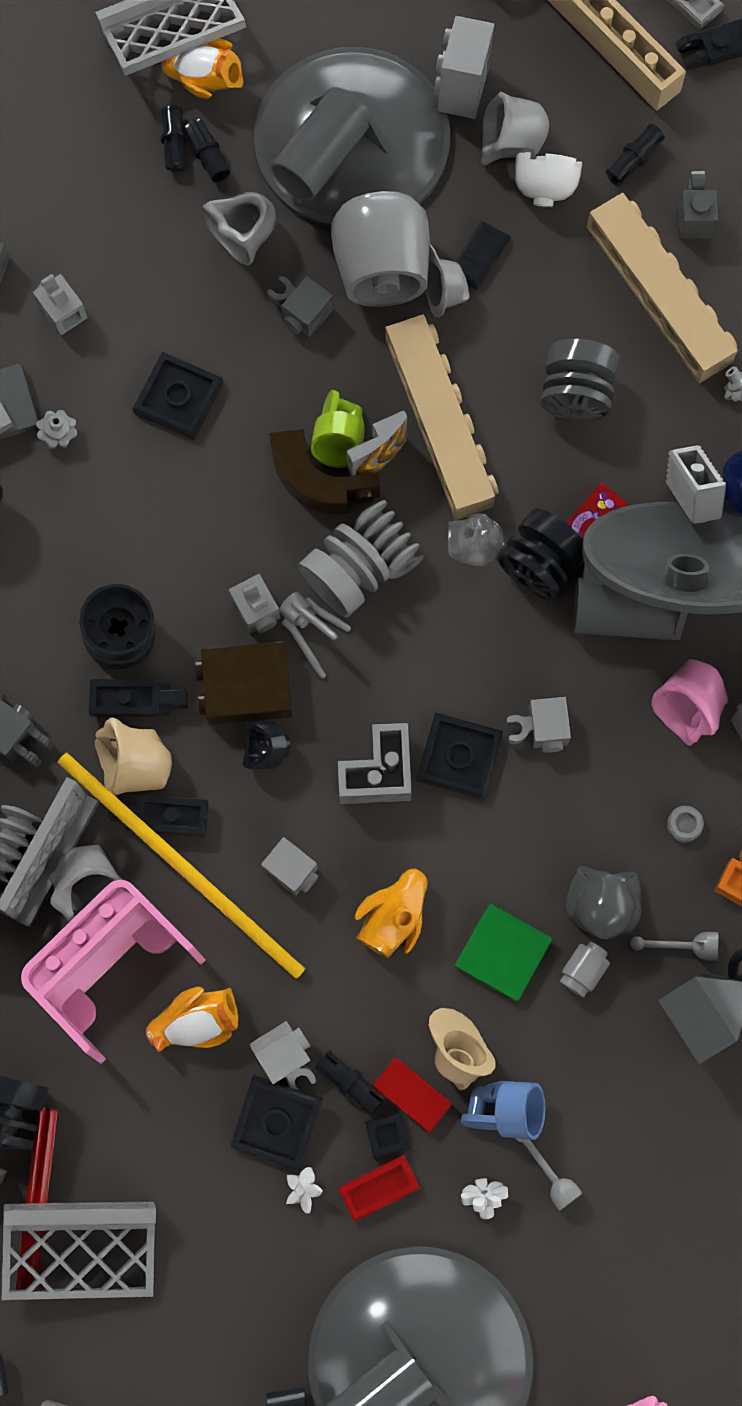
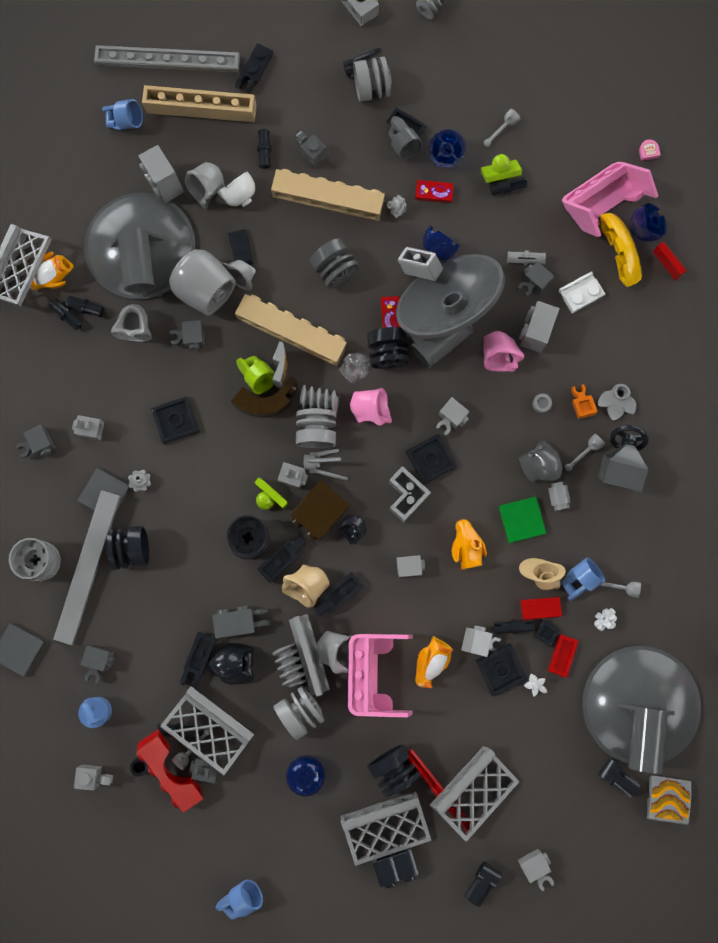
camera: 45 degrees left, 5 degrees up
(183, 867) = (366, 607): yellow piece -> none
(198, 602) = (267, 498): none -> lime tile
(446, 611) = (371, 406): none -> bright pink piece

